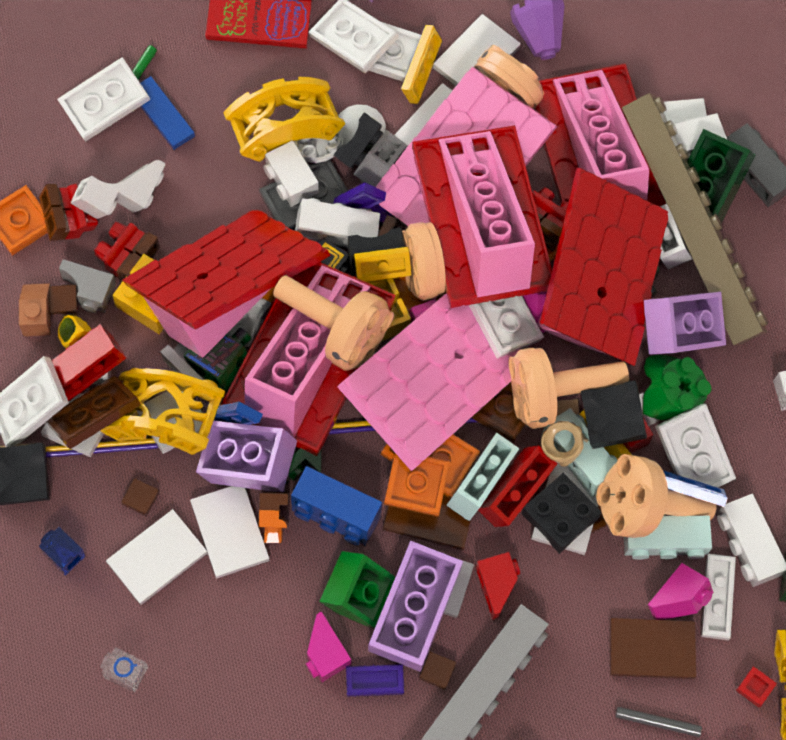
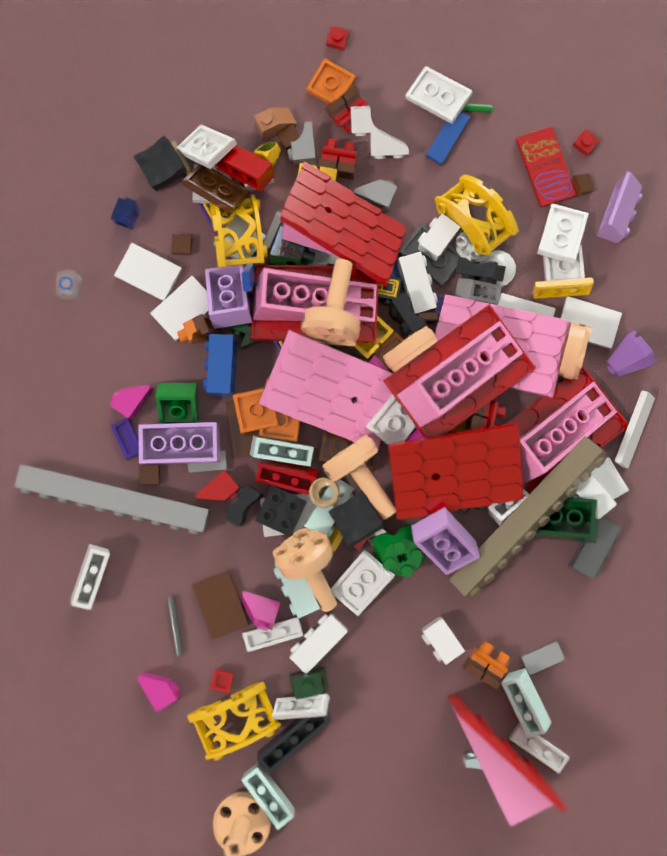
camera: 75 degrees right, 15 degrees up
(198, 219) = (378, 193): none -> light grey slope
(362, 197) = (440, 289): dark purple tile -> none
(383, 264) = (394, 323): yellow plate -> none
(539, 563) = (237, 511): none -> black brick
(631, 60) = (634, 429): none -> white tile
(695, 489) = (333, 587): tile -> none

